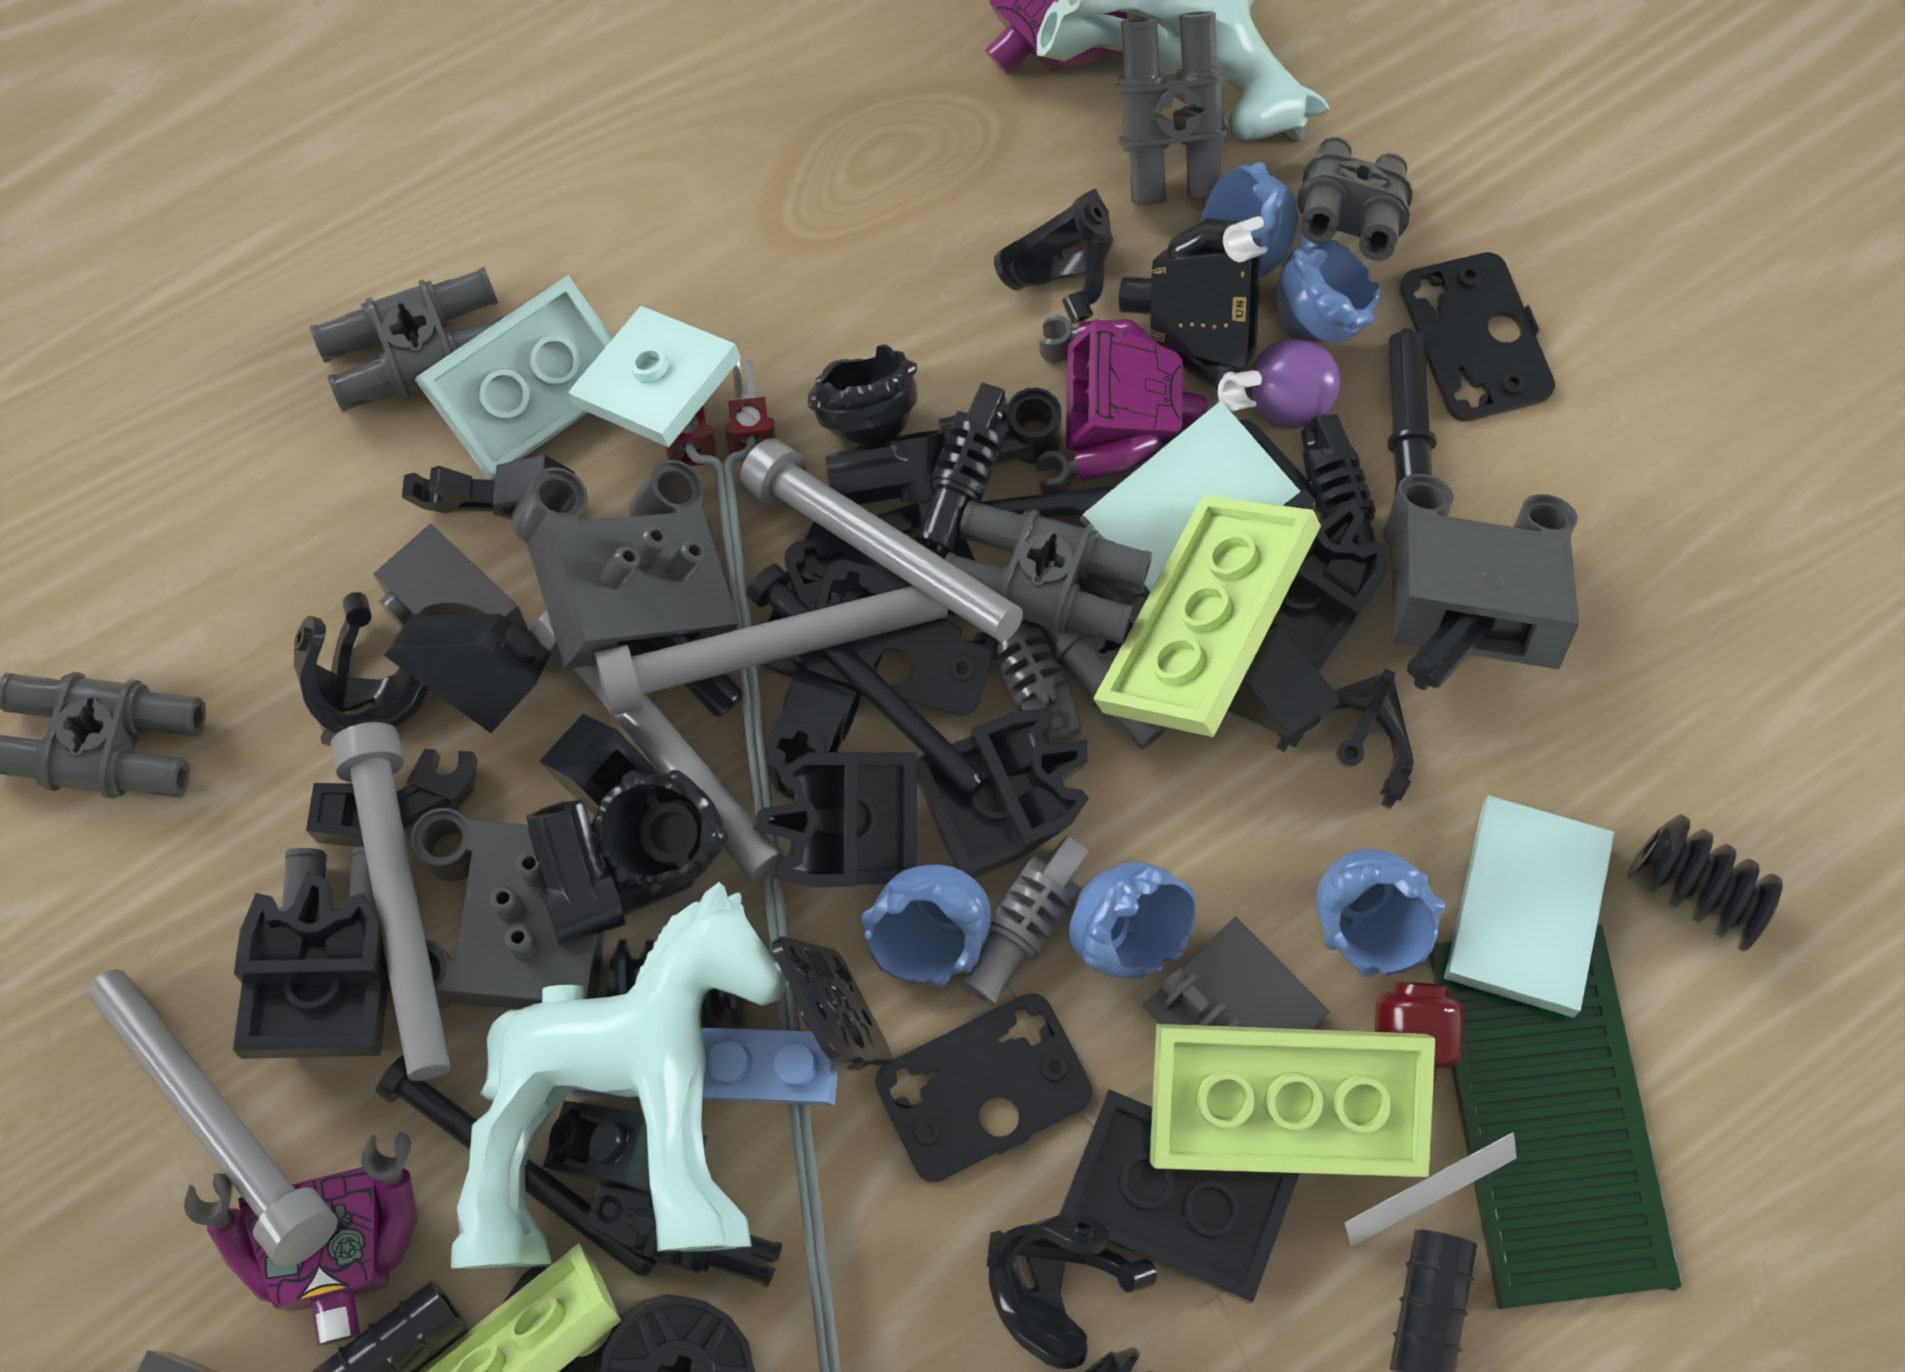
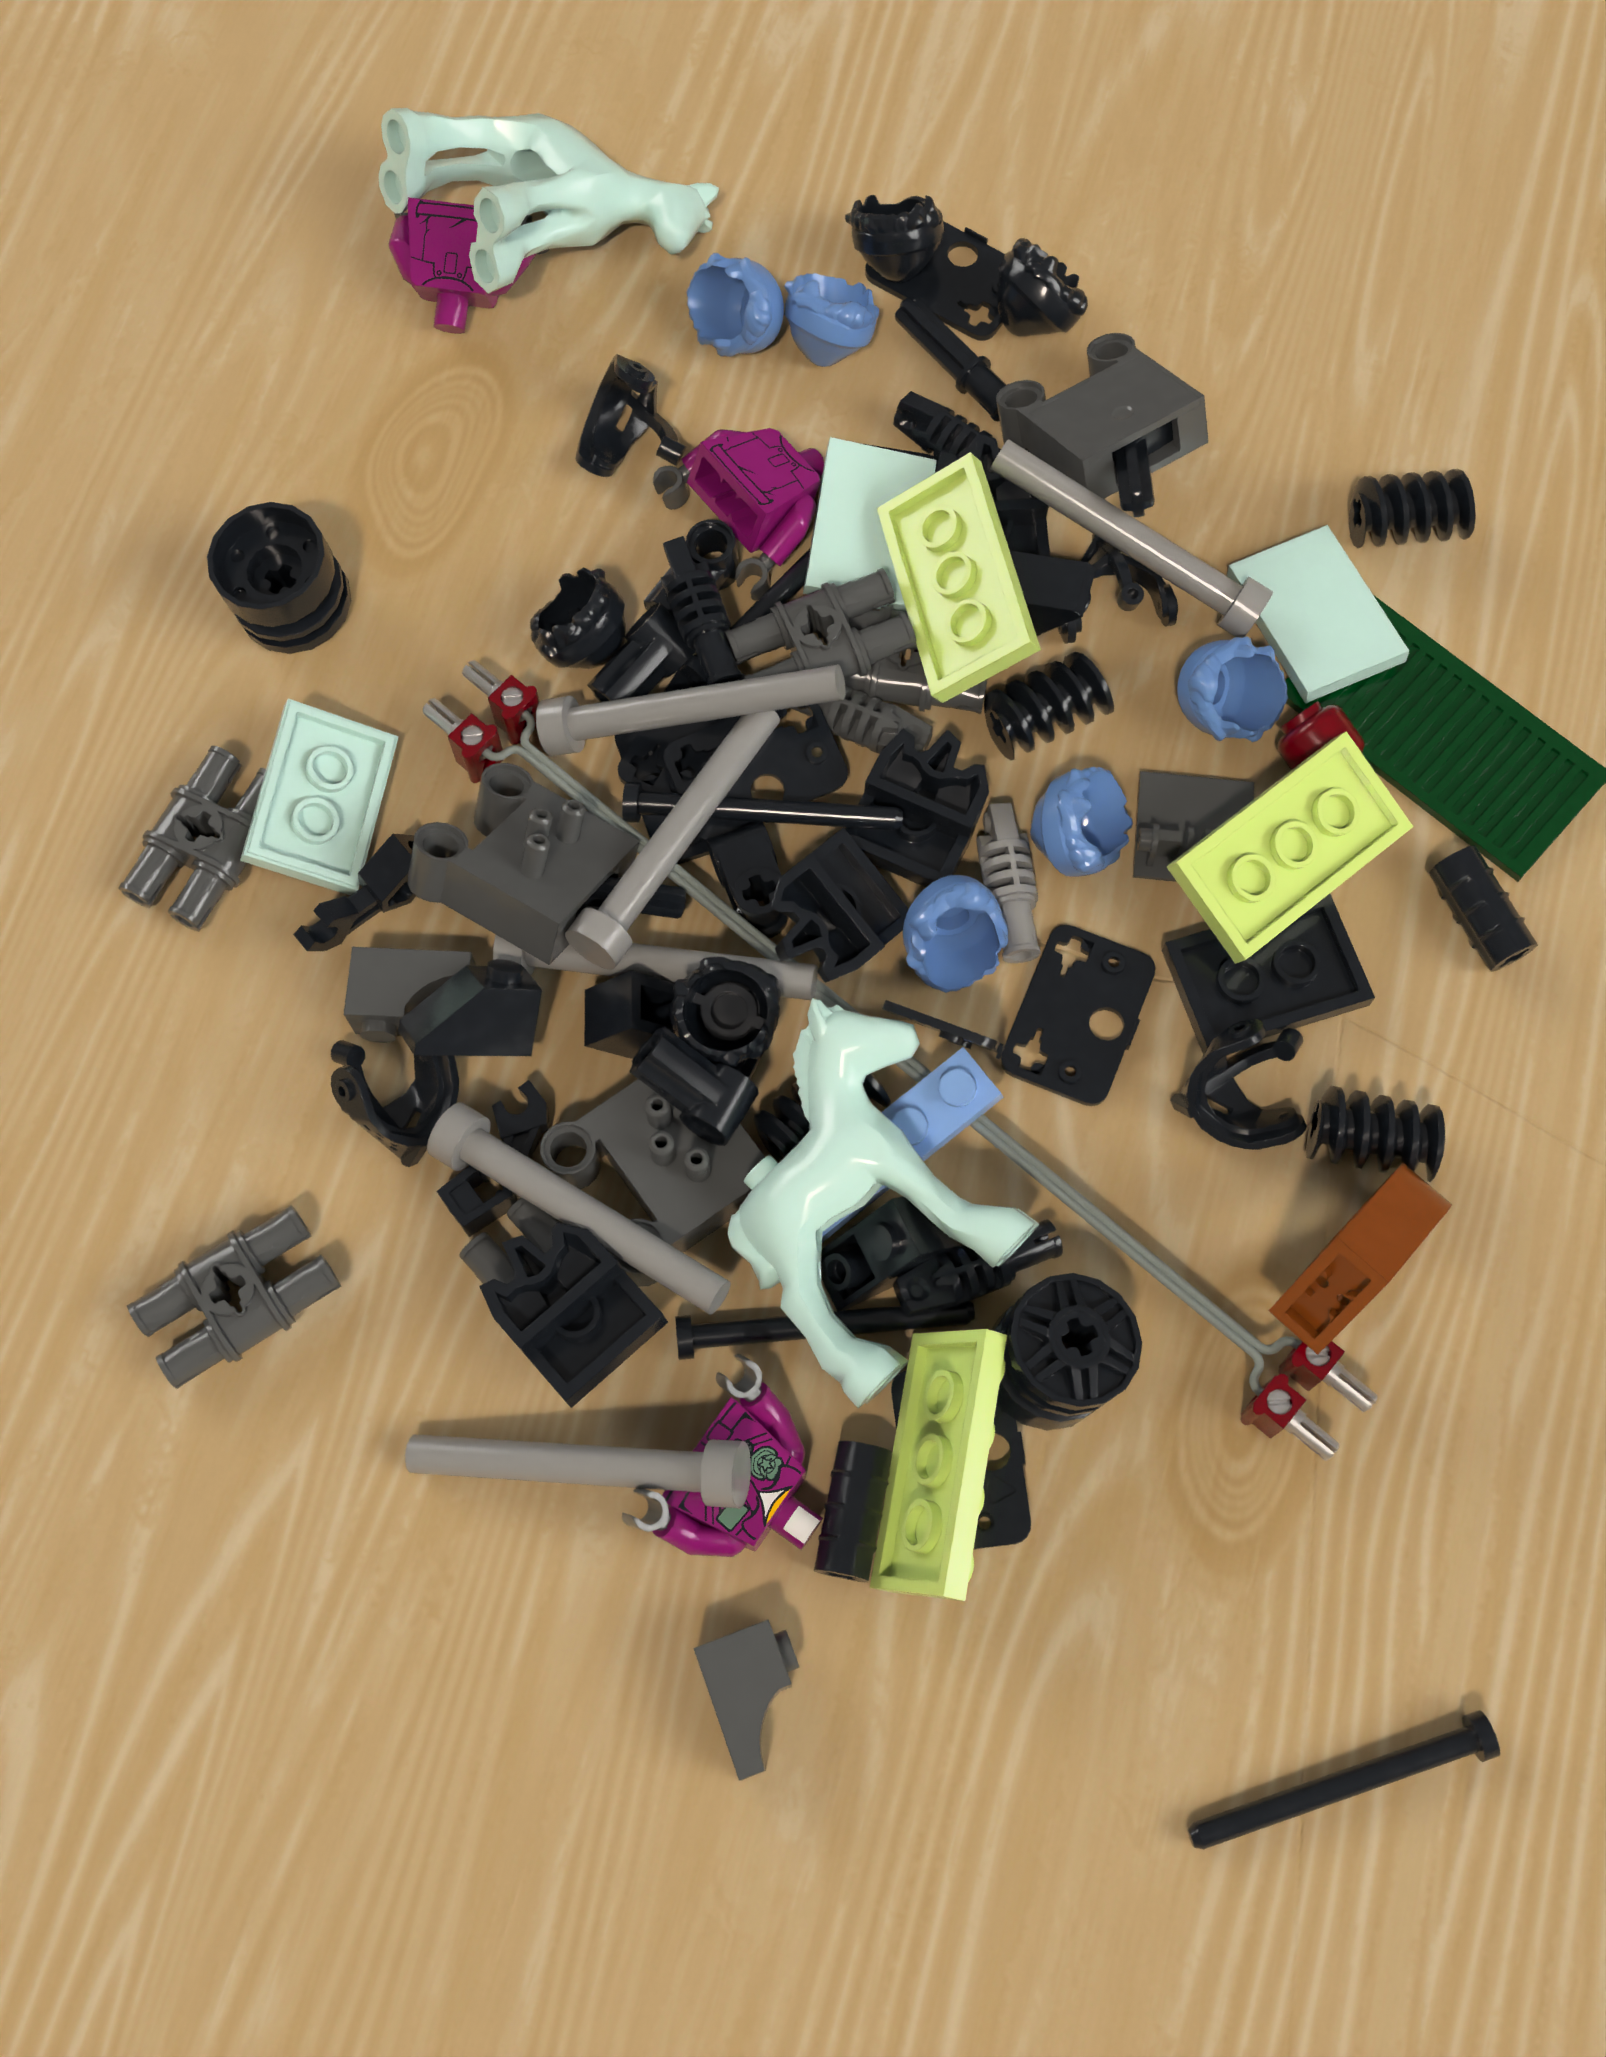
camera: 35 degrees left, 0 degrees up
(654, 375) = (418, 720): light aqua plate -> none
(655, 168) = (279, 577): none -> black wheel
(1149, 91) = (593, 260): dark grey pin -> none
(1202, 787) = (1044, 700): none -> black piece
(1206, 303) = (759, 376): black torso -> none
(1296, 382) = (860, 394): medium lavender hair -> none
(1355, 198) = (795, 233): dark grey pin -> none
(1431, 1190) = (1417, 838): white sticker -> none
(1446, 266) = (898, 236): none -> black hair
(1453, 836) = (1236, 602): none -> light grey piece
(1534, 411) = (1036, 293): none -> black hair

